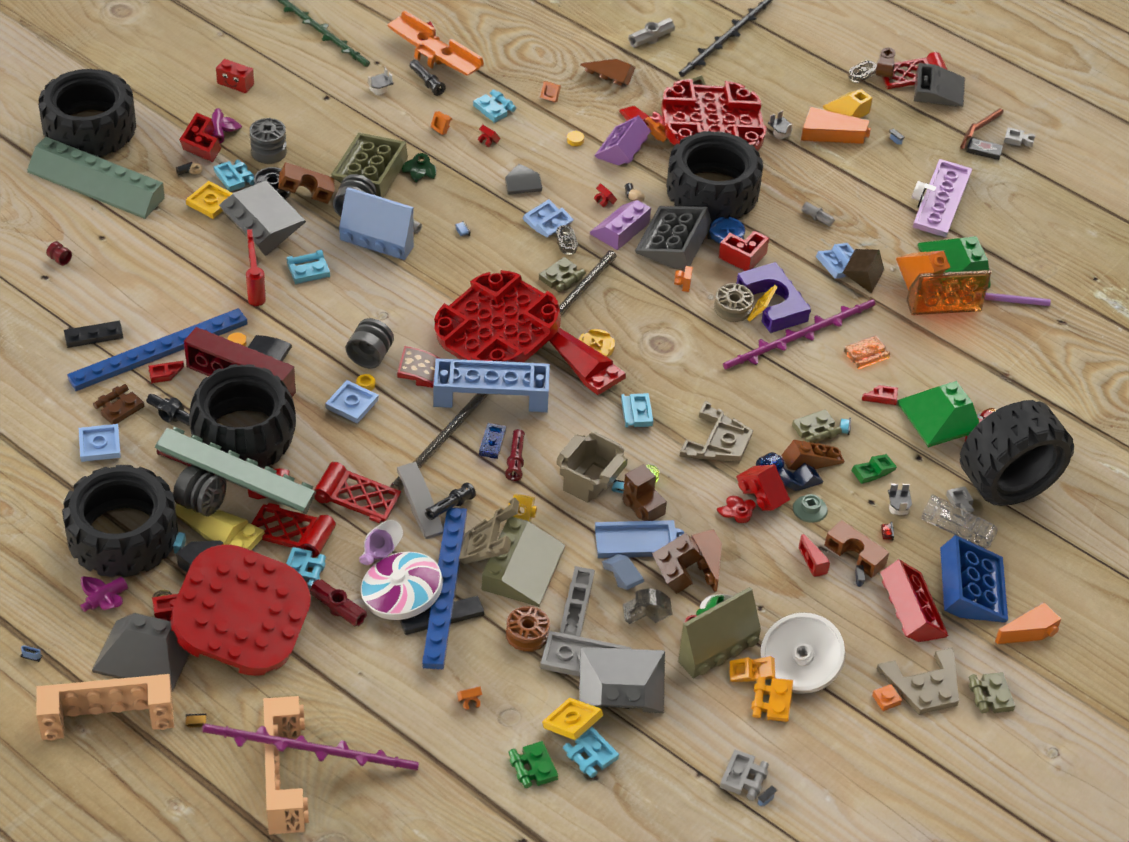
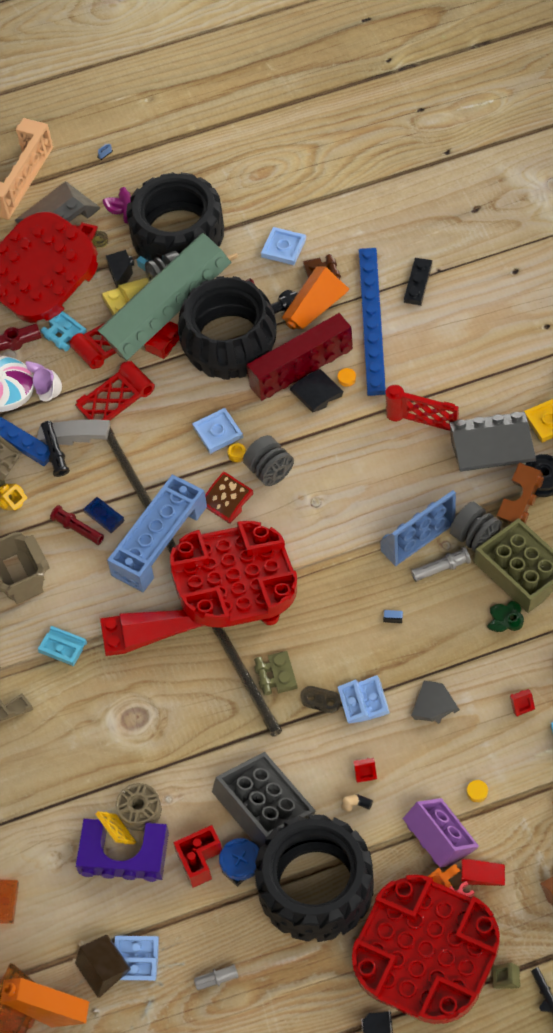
camera: 130 degrees right, 10 degrees up
(59, 253) = (533, 283): dark red wheel -> none
(162, 384) = (314, 298): none -> orange slope
(165, 371) = (344, 309): red tile -> none
(308, 271) = (406, 464): medium azure plate -> none
(599, 340) = (167, 658): yellow tile -> none
(623, 224) = (314, 762): medium lavender slope -> none
(684, 278) = (198, 779): orange tile -> none
(807, 332) = (61, 859): magenta plant -> none

